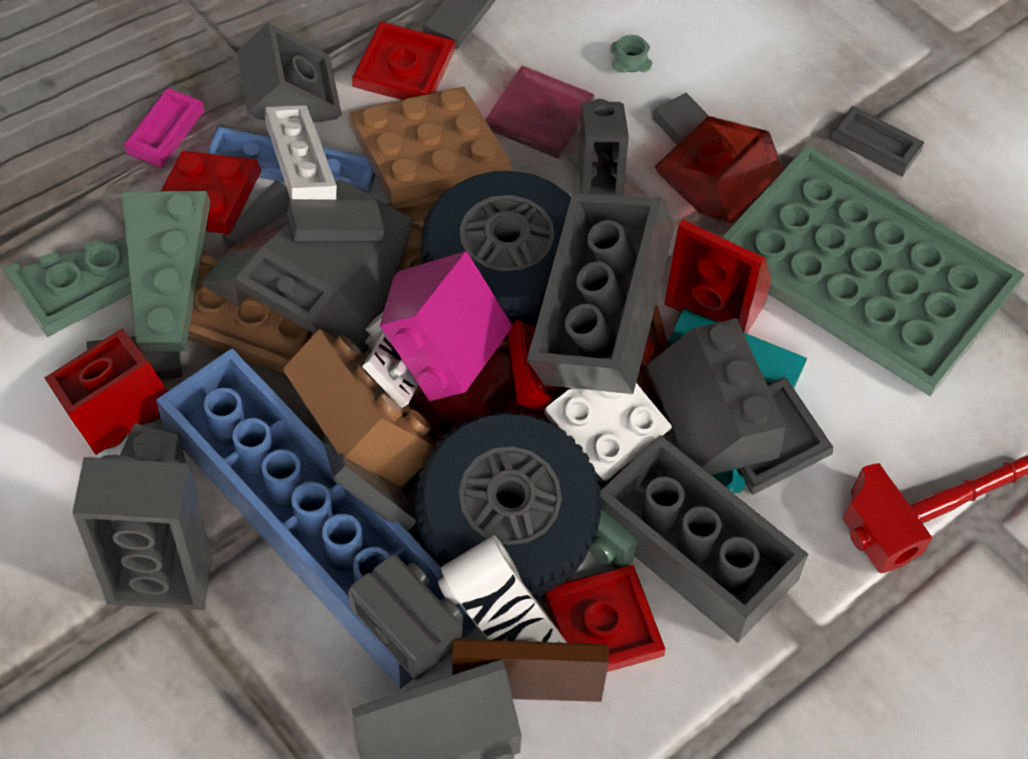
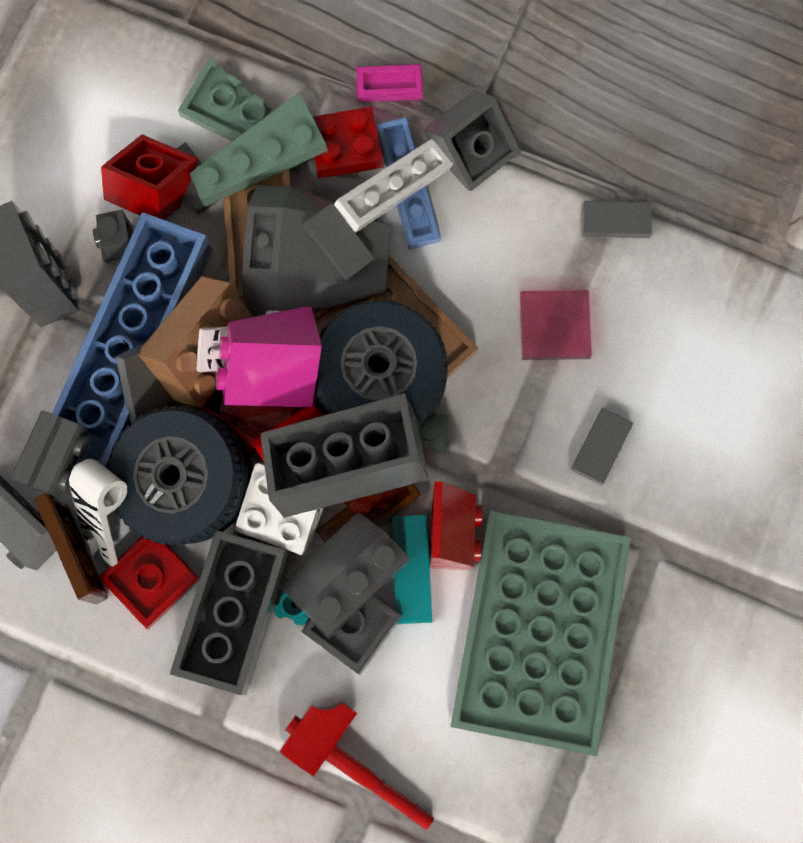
camera: 65 degrees right, 20 degrees up
(403, 62) = (543, 207): red tile -> none
(427, 143) = (470, 265): medium nougat plate -> none
(606, 132) = (536, 386): dark grey torso -> none
(613, 543) = (198, 554): sand green plate -> none
(631, 54) = (649, 354): sand green plate -> none
(721, 167) = (566, 481): clear red slope -> none
(877, 141) = (676, 588): dark grey tile -> none

